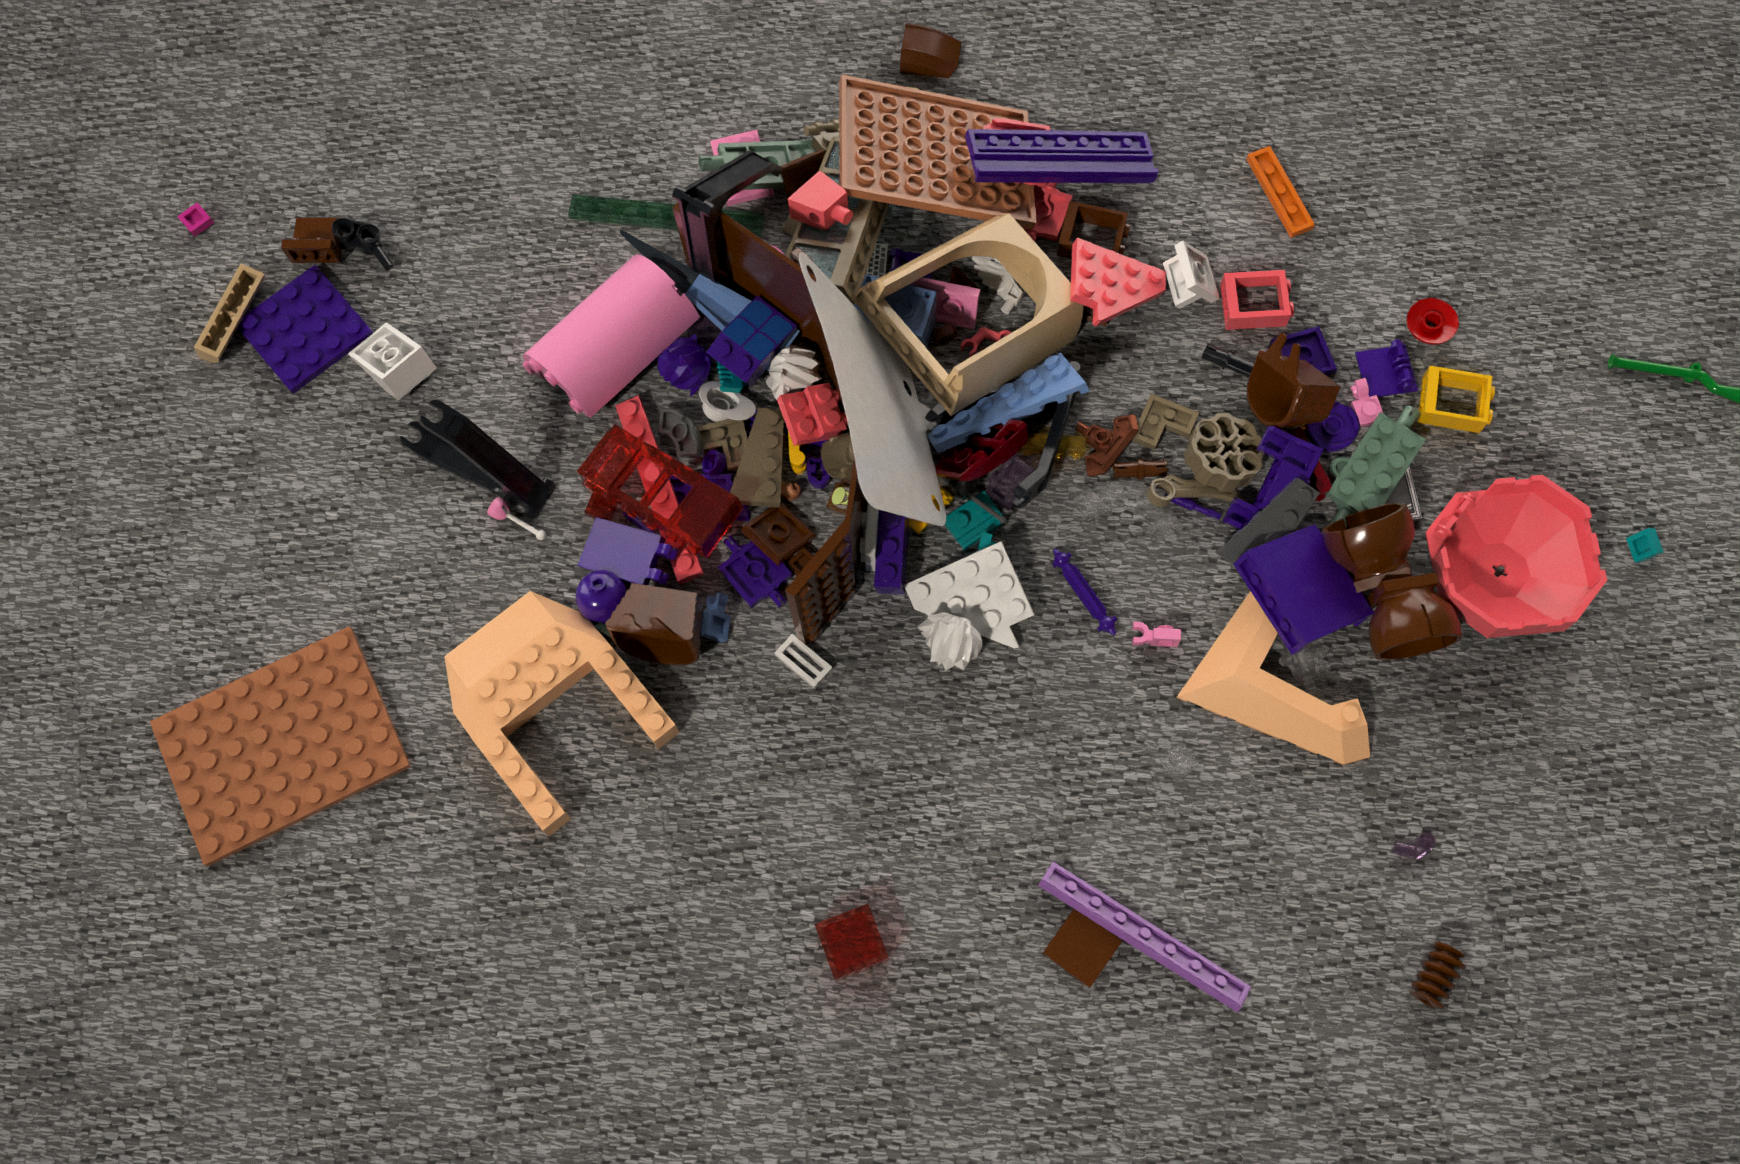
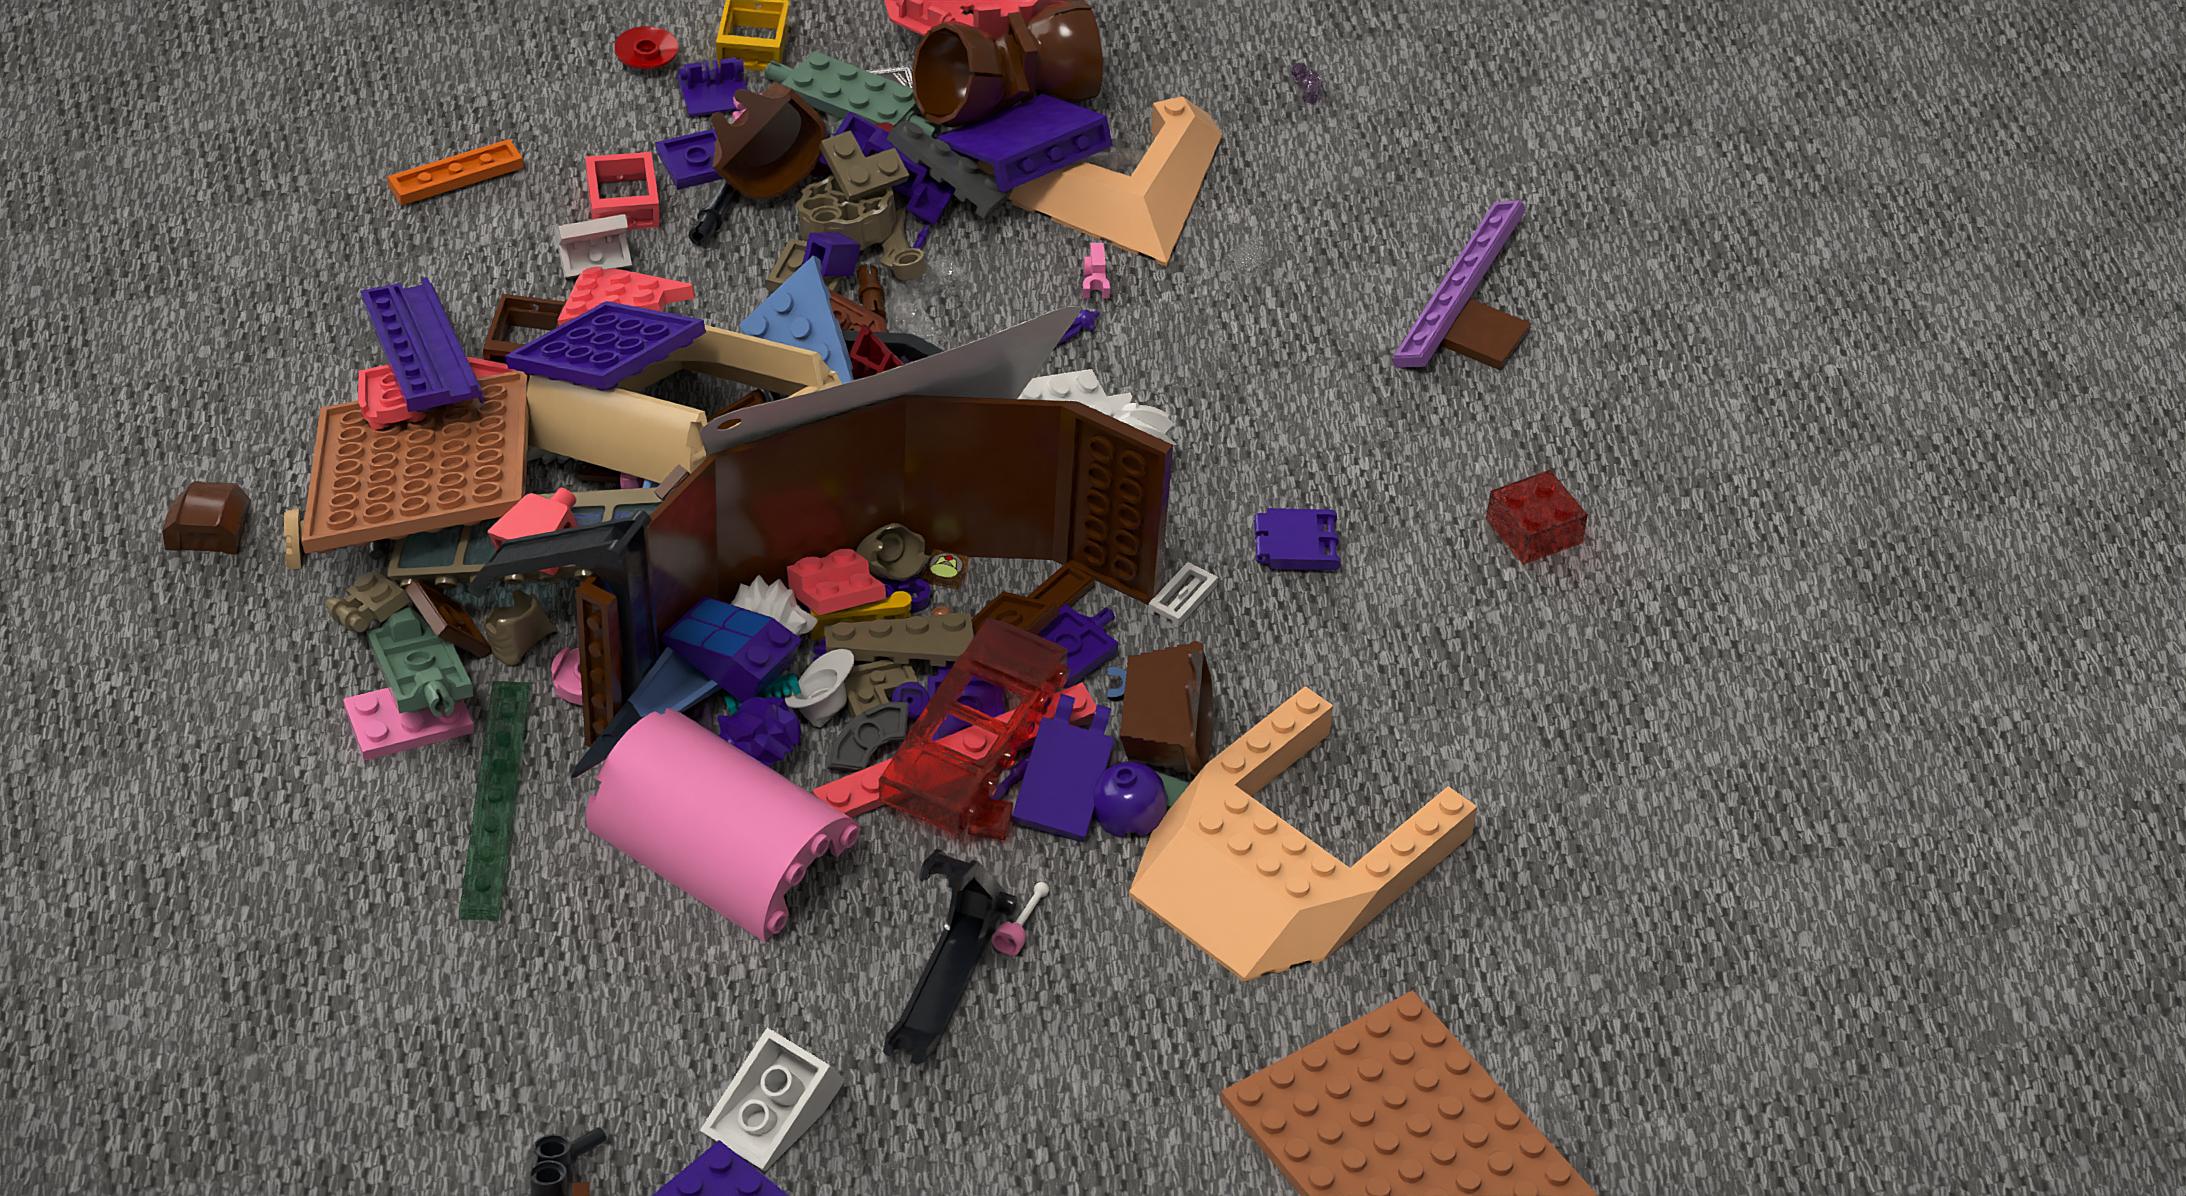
camera: 105 degrees left, 25 degrees down
(849, 751) = (1296, 539): none -> dark purple plate
(1013, 250) = (606, 345): none -> dark purple plate
(1167, 435) = (836, 253): none -> dark purple brick
(1245, 450) = (858, 174): none -> dark tan plate
(1437, 975) = (1446, 65): reddish brown piece -> none

